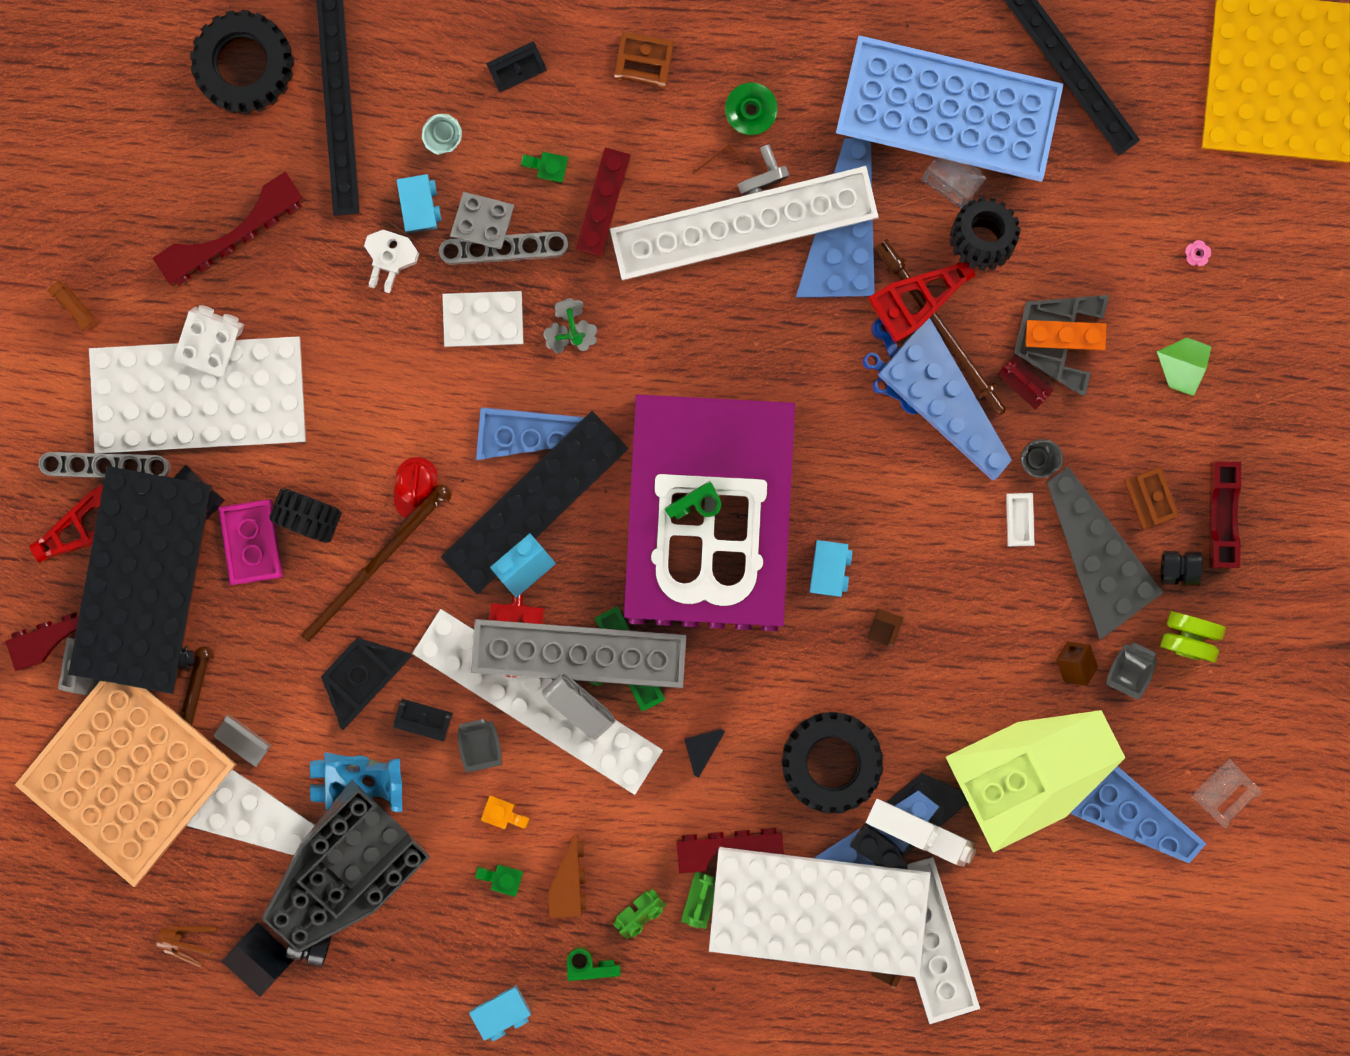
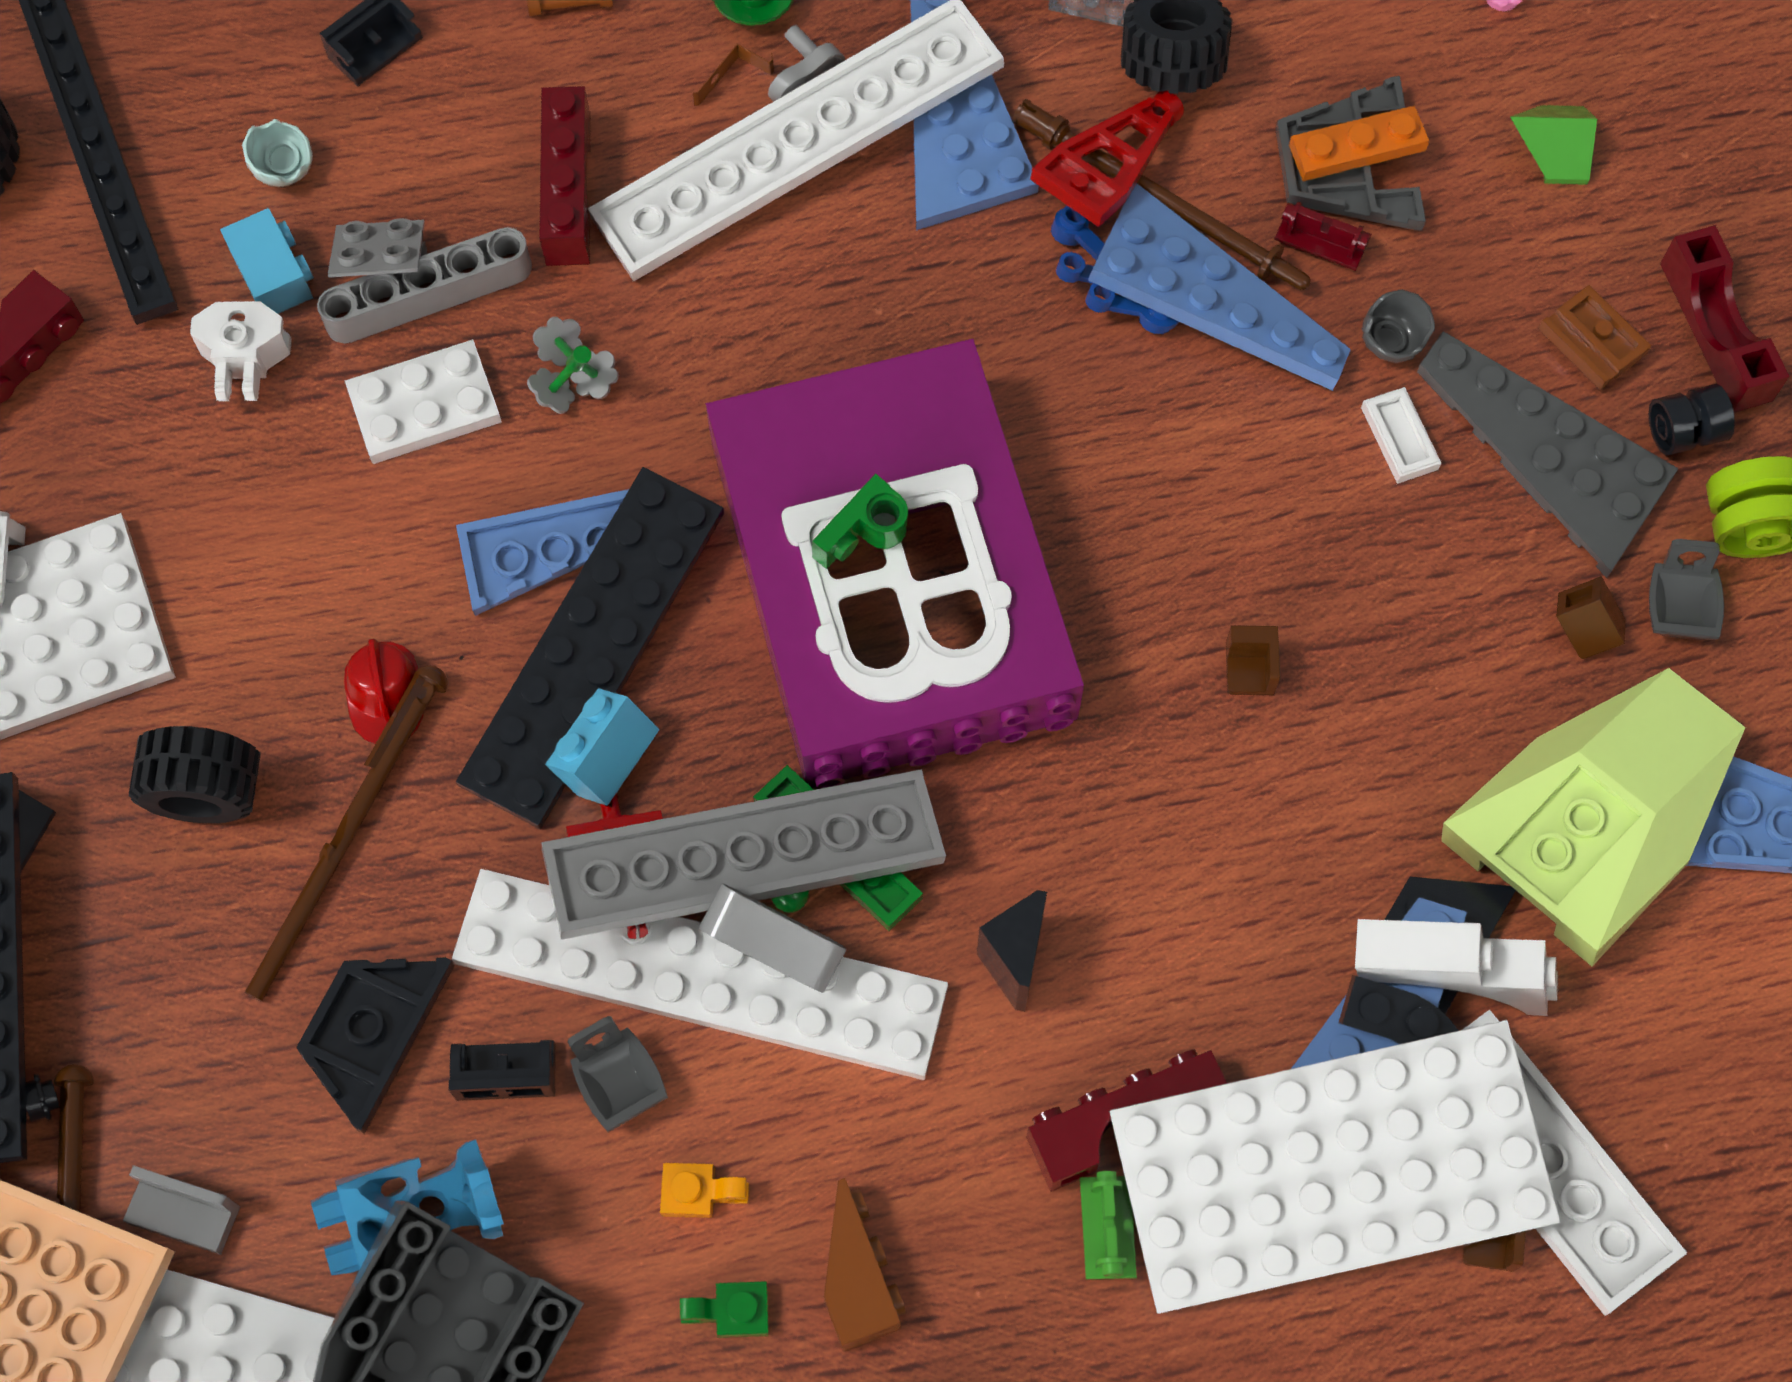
camera: 15 degrees left, 20 degrees down
(250, 542) = (115, 867): dark pink tile -> none
(550, 166) = (464, 158): green plate -> none
(631, 922) = (999, 1311): bright green hinge -> none
(829, 568) = (1123, 596): medium azure brick -> none
(832, 798) = (1276, 846): black tyre -> none

